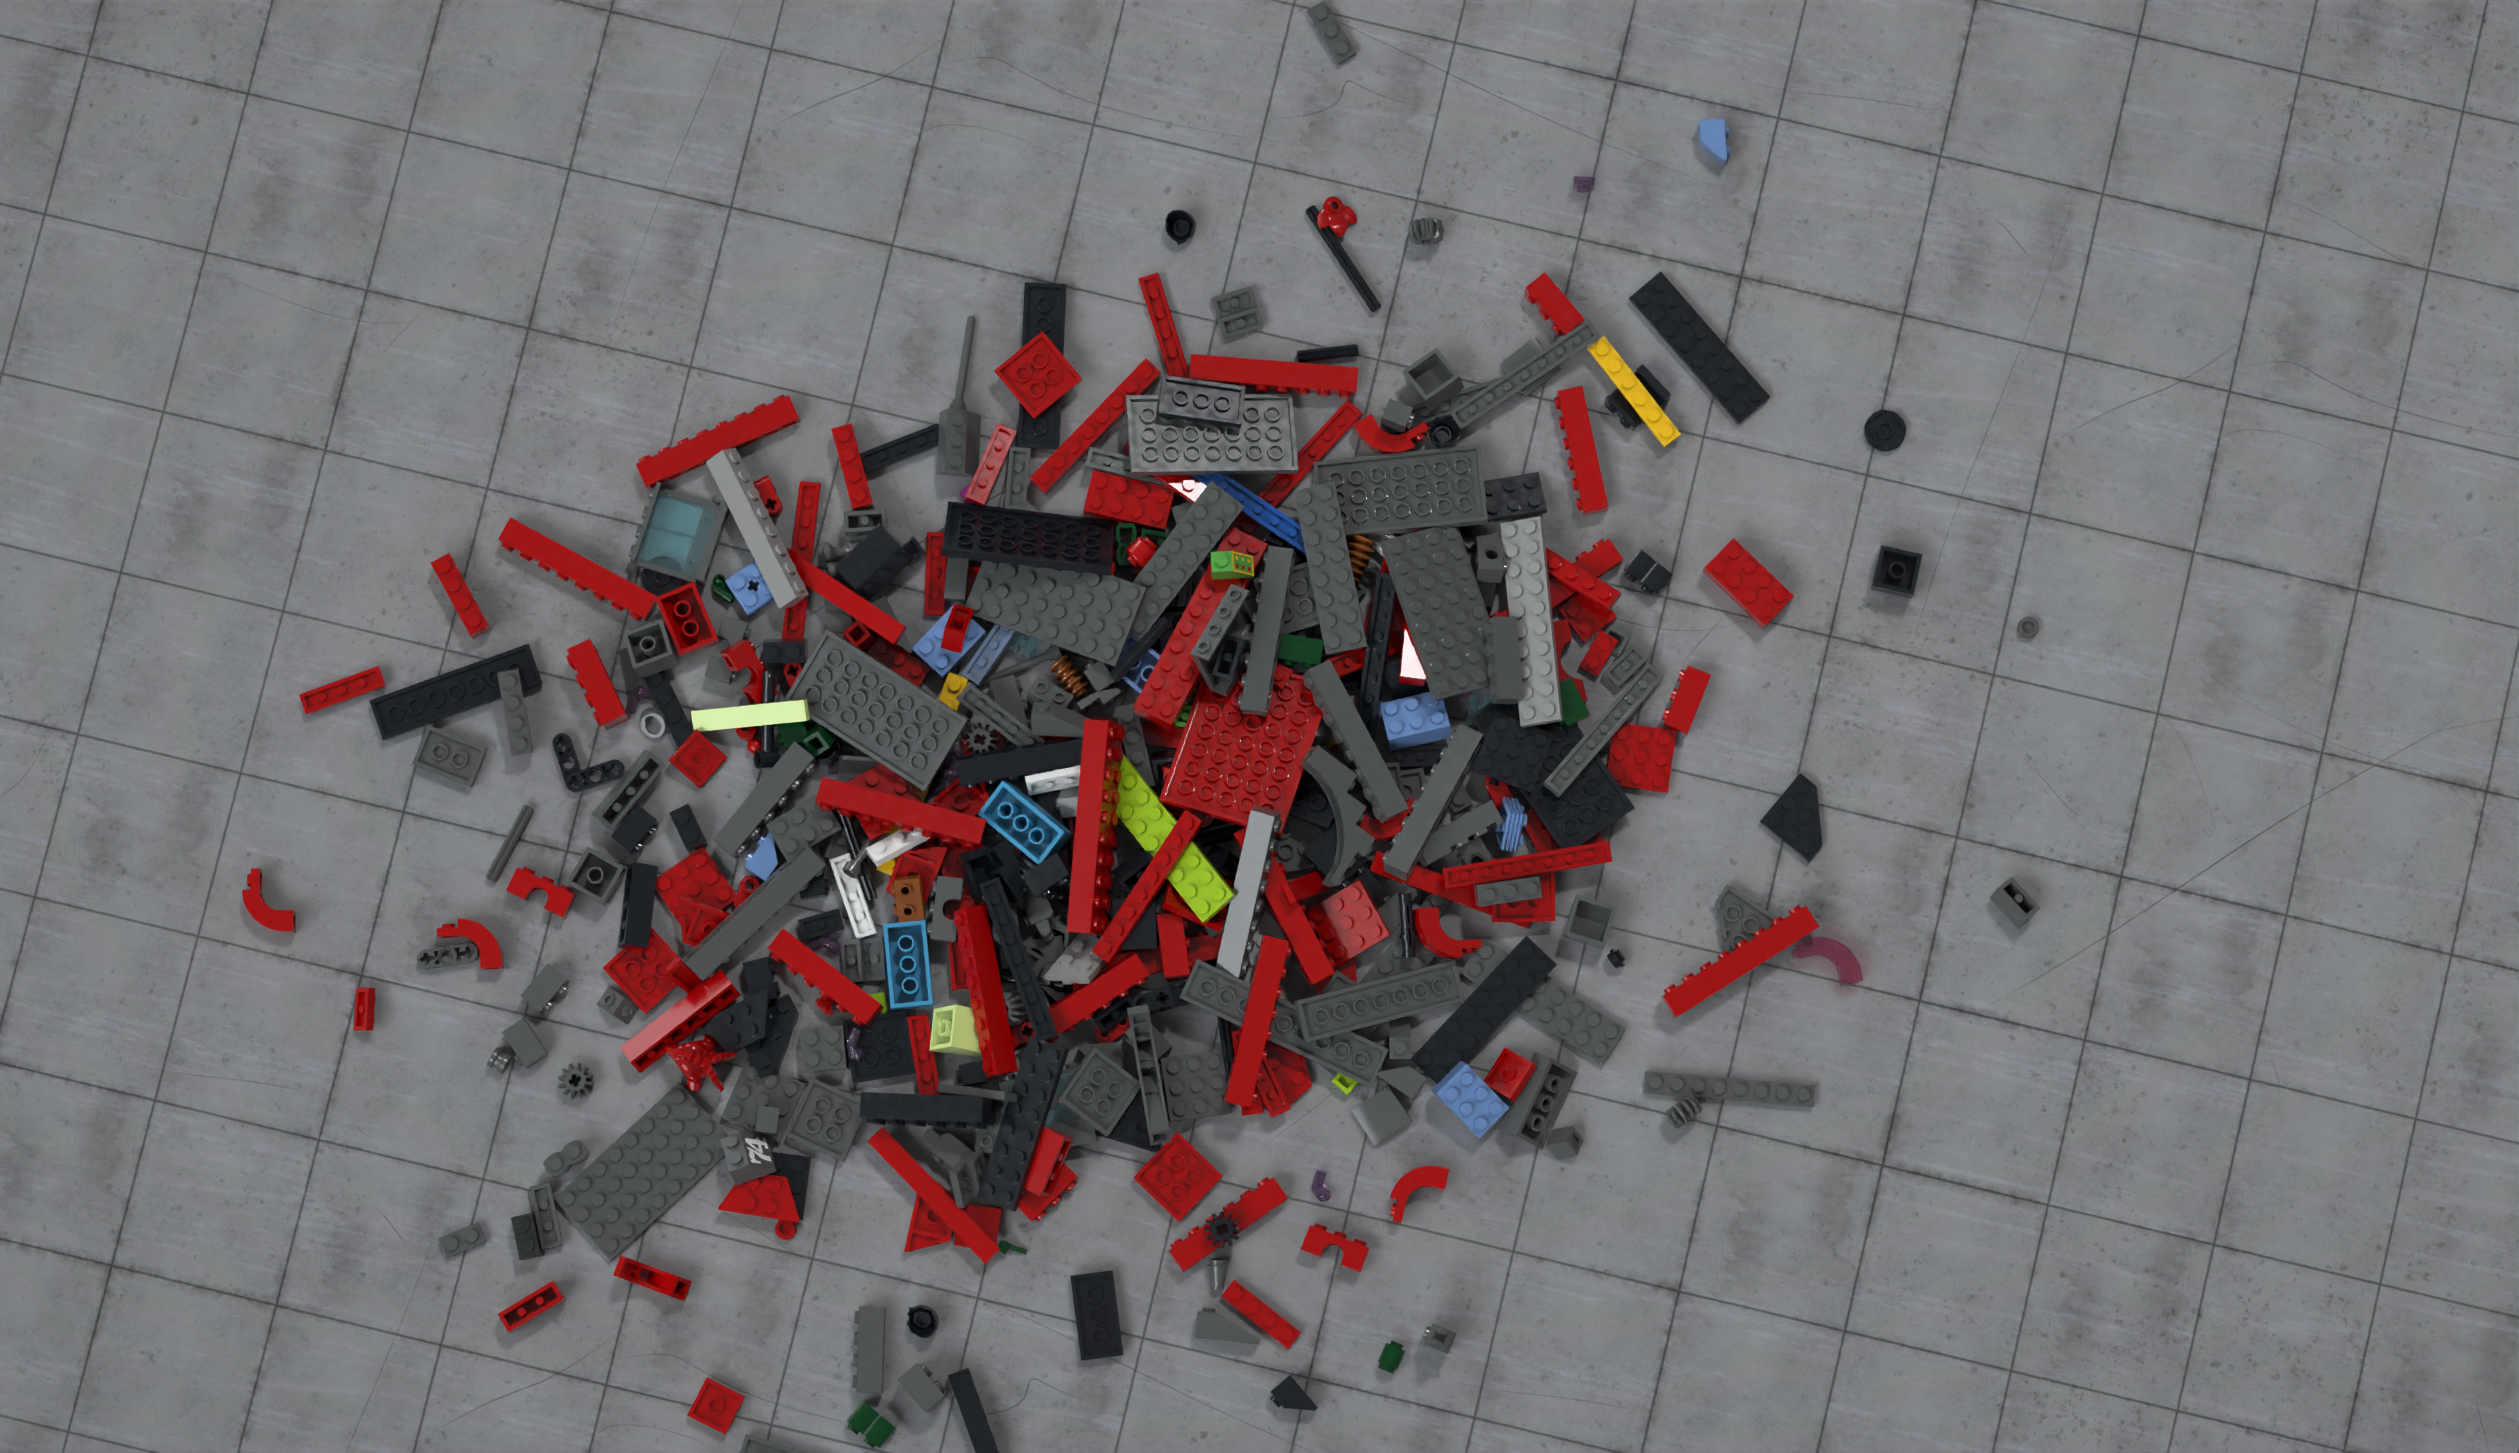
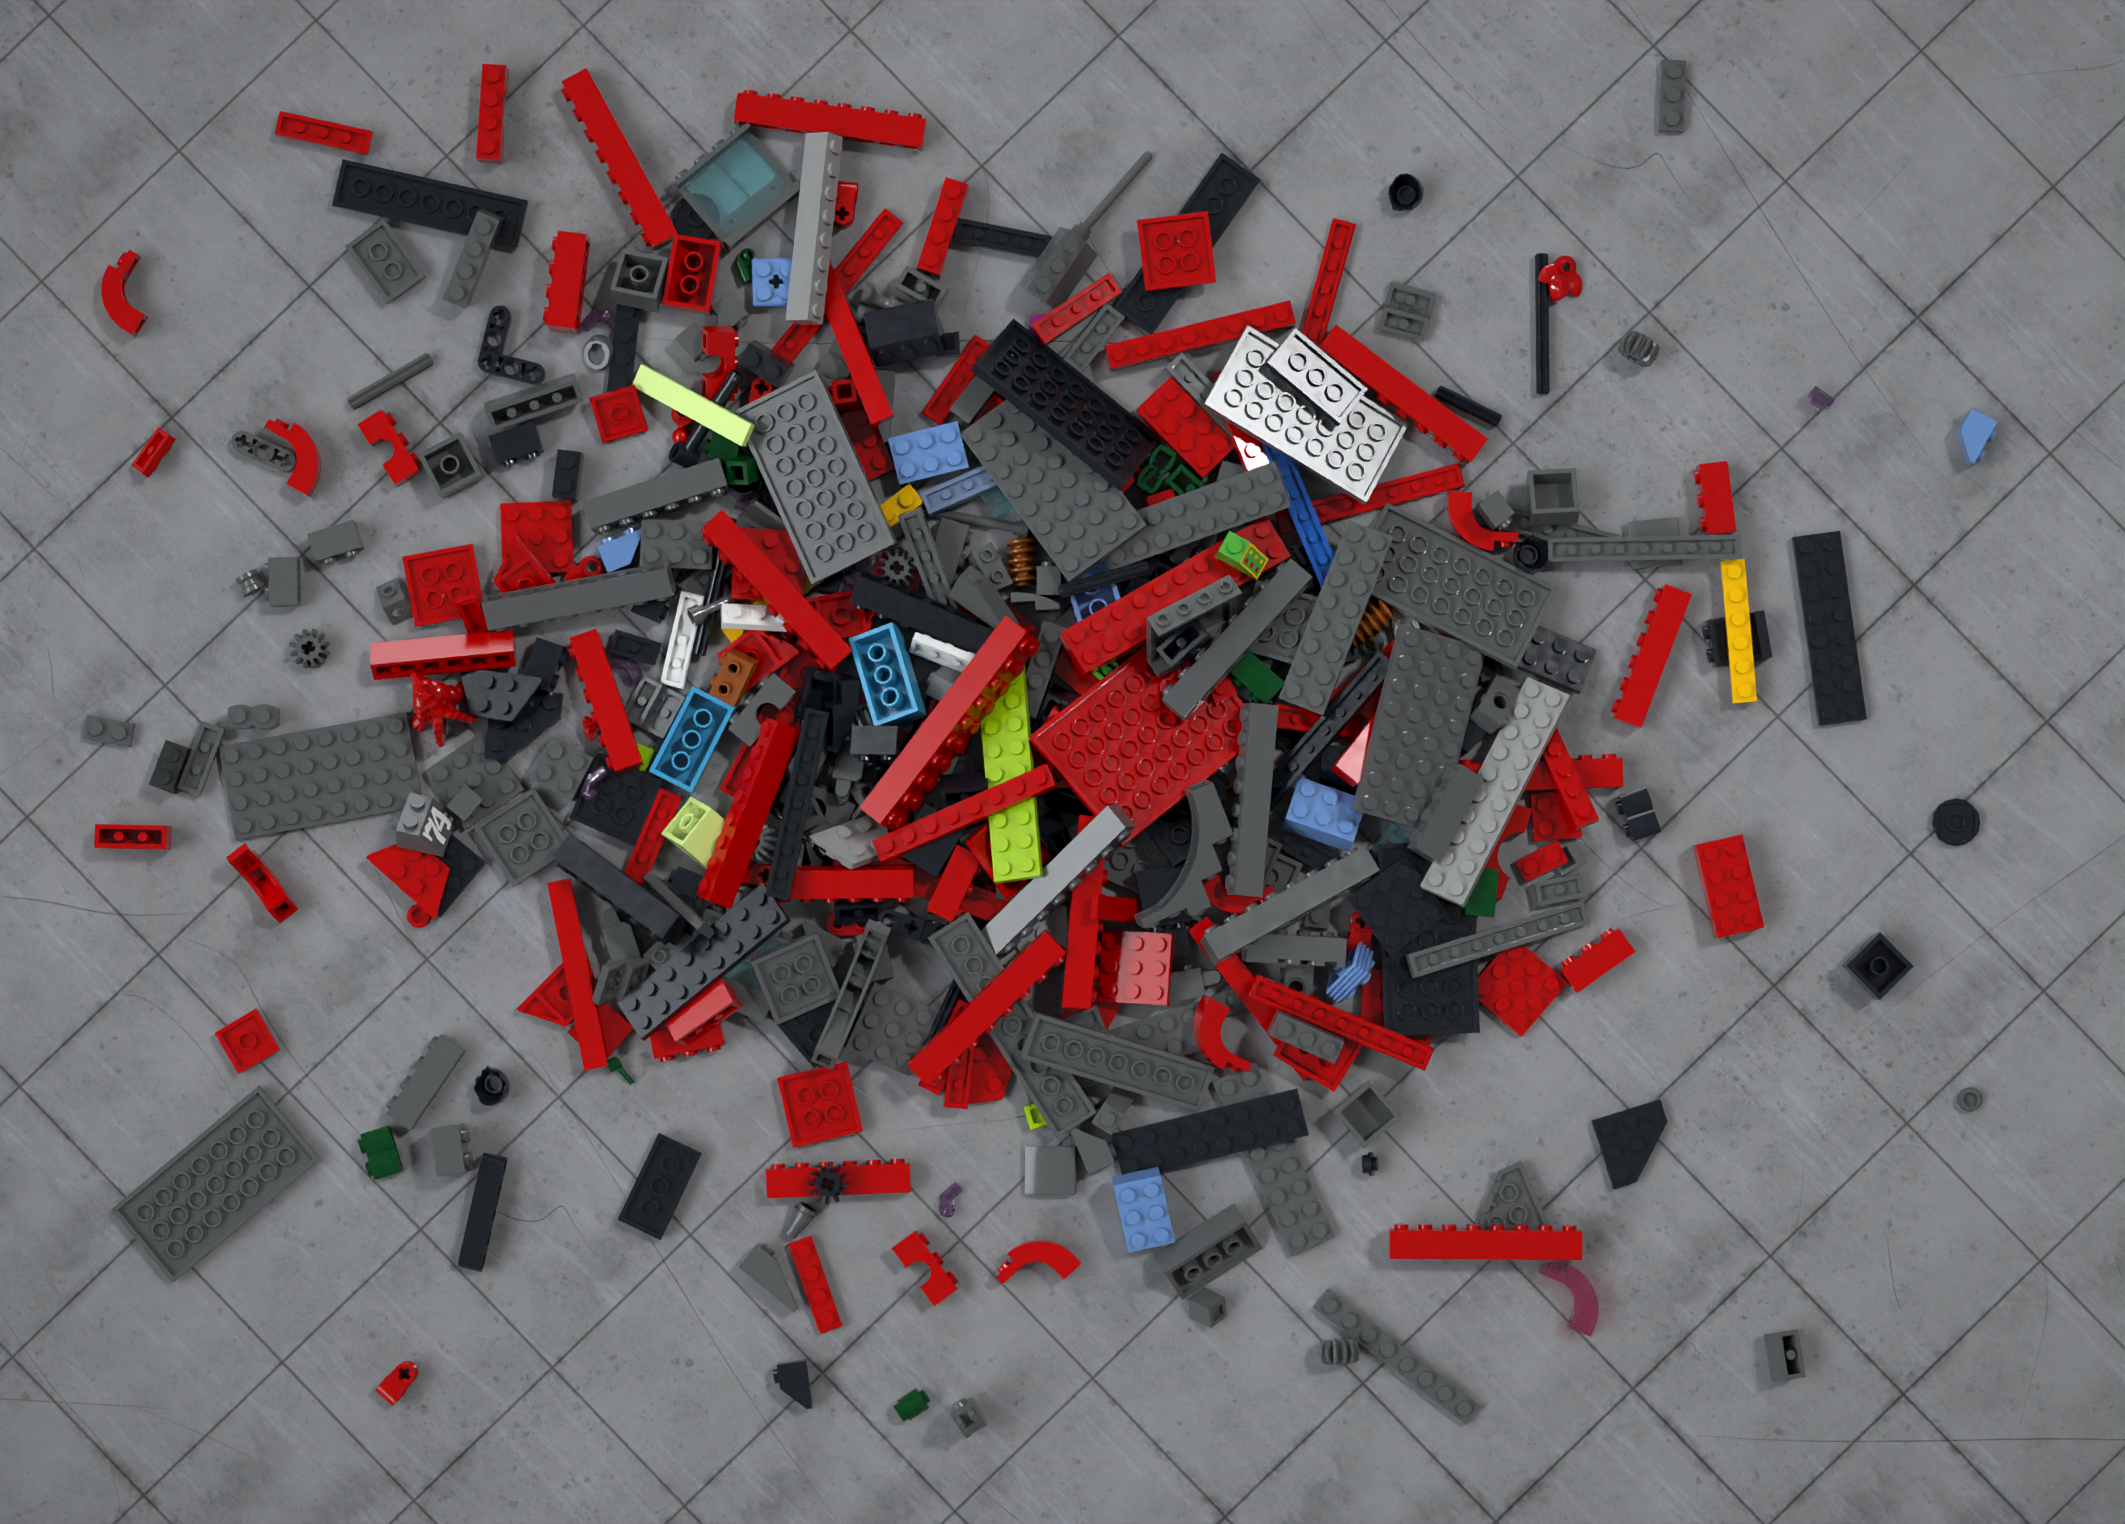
camera: 35 degrees right, 5 degrees up
(637, 905) = (472, 519): black panel -> none
(957, 628) = (942, 447): red slope -> none
(1141, 551) = (1165, 486): red head -> none
(1407, 928) = (1185, 1014): black pin -> none
(1509, 1074) = (1196, 1210): red plate -> none

